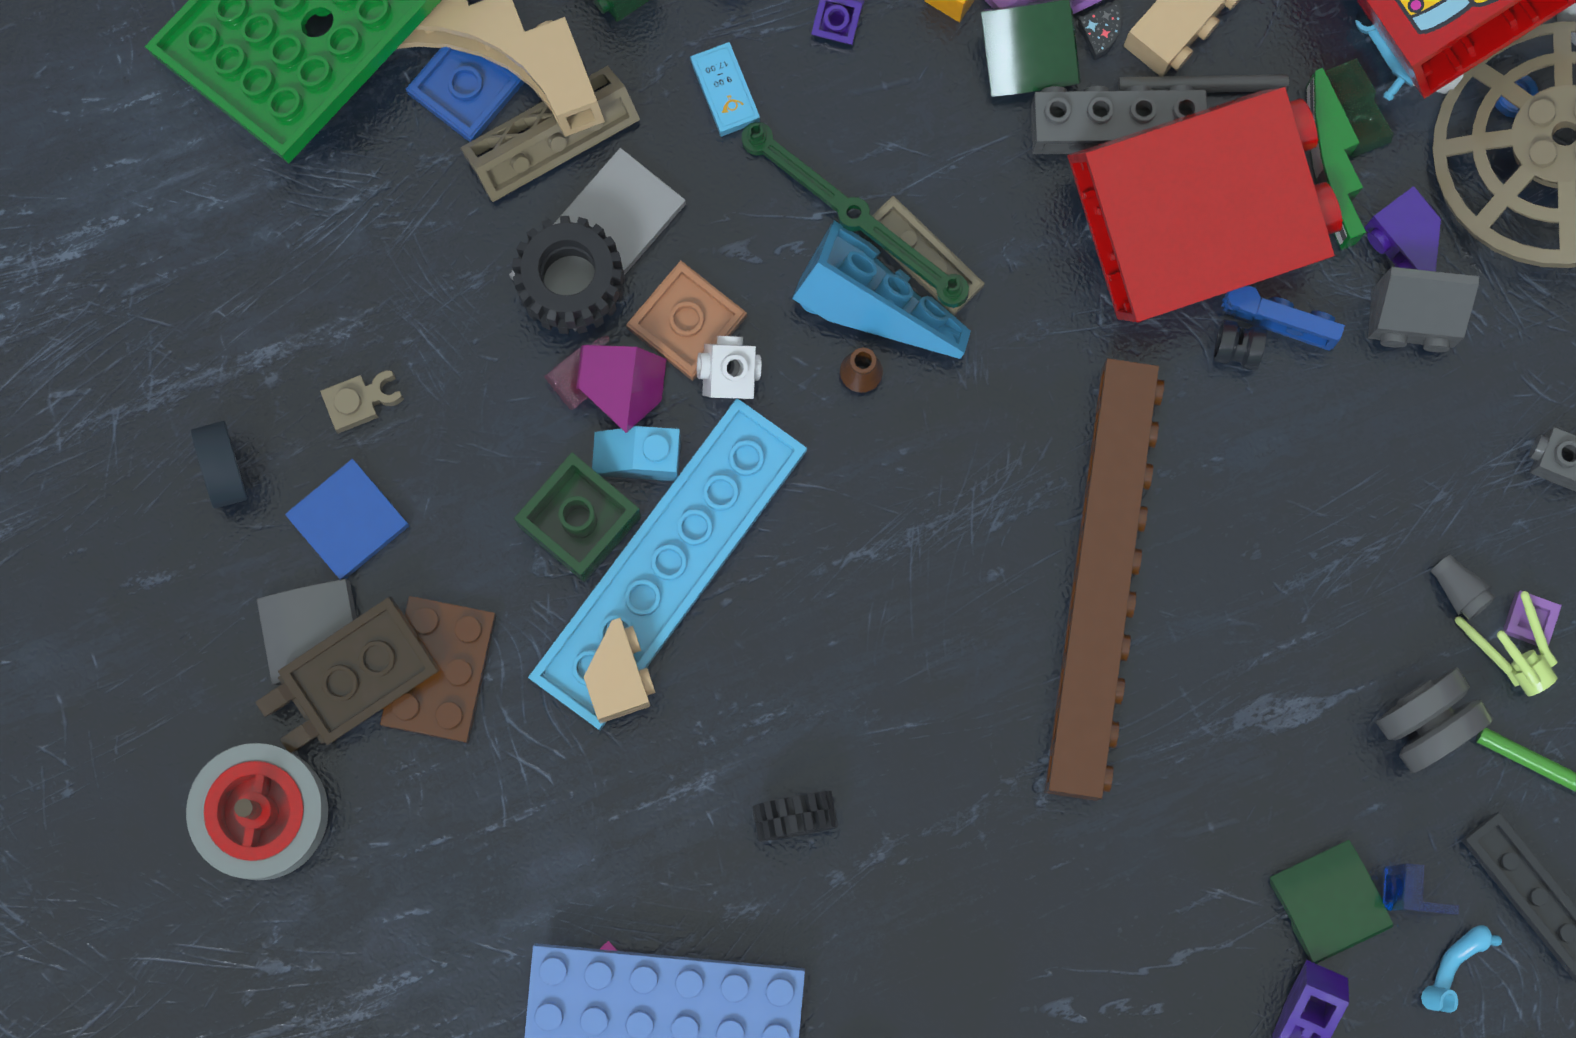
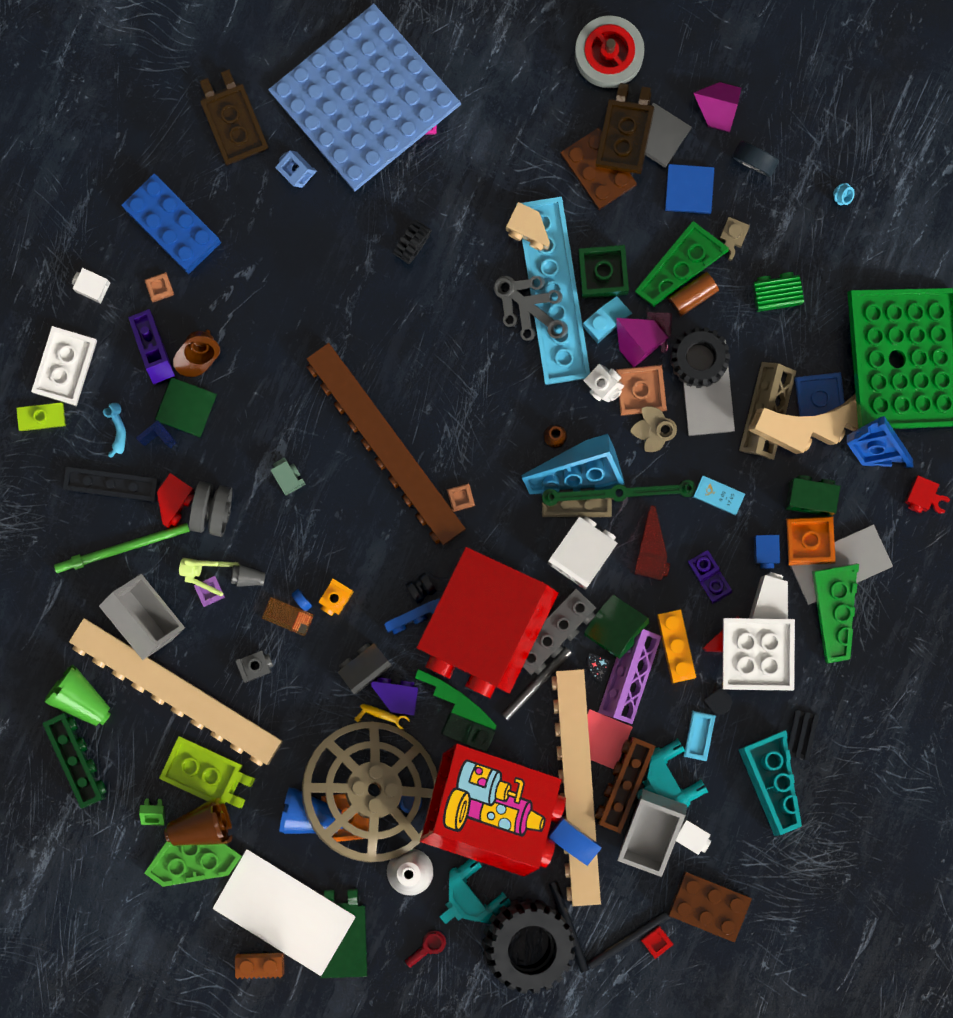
camera: 140 degrees right, 5 degrees up
(155, 309) = (843, 194): none -> medium azure plate
(187, 590) = (719, 104): none -> magenta slope
(377, 266) = (778, 292): none -> green brick
(447, 428) = (683, 261): none -> green wing
(487, 376) = (693, 293): none -> dark orange brick
(723, 574) = (528, 306): none -> dark grey plant
(727, 257) = (650, 429): none -> dark tan plate
(891, 95) = (652, 552): none -> clear red slope
(982, 179) = (582, 552): none -> white slope
(1067, 413) = (461, 497): none -> nougat tile
(1245, 961) = (196, 354): none -> reddish brown piece
(1280, 666) = (287, 476): none -> sand green brick
(1356, 452) = (343, 593): none -> light orange brick
(1417, 483) = (301, 600): none -> blue tile
(1454, 239) = (382, 714): none -> yellow piece
(1454, 483) = (288, 616): none -> clear orange tile
(1468, 792) = (172, 498): none -> red slope

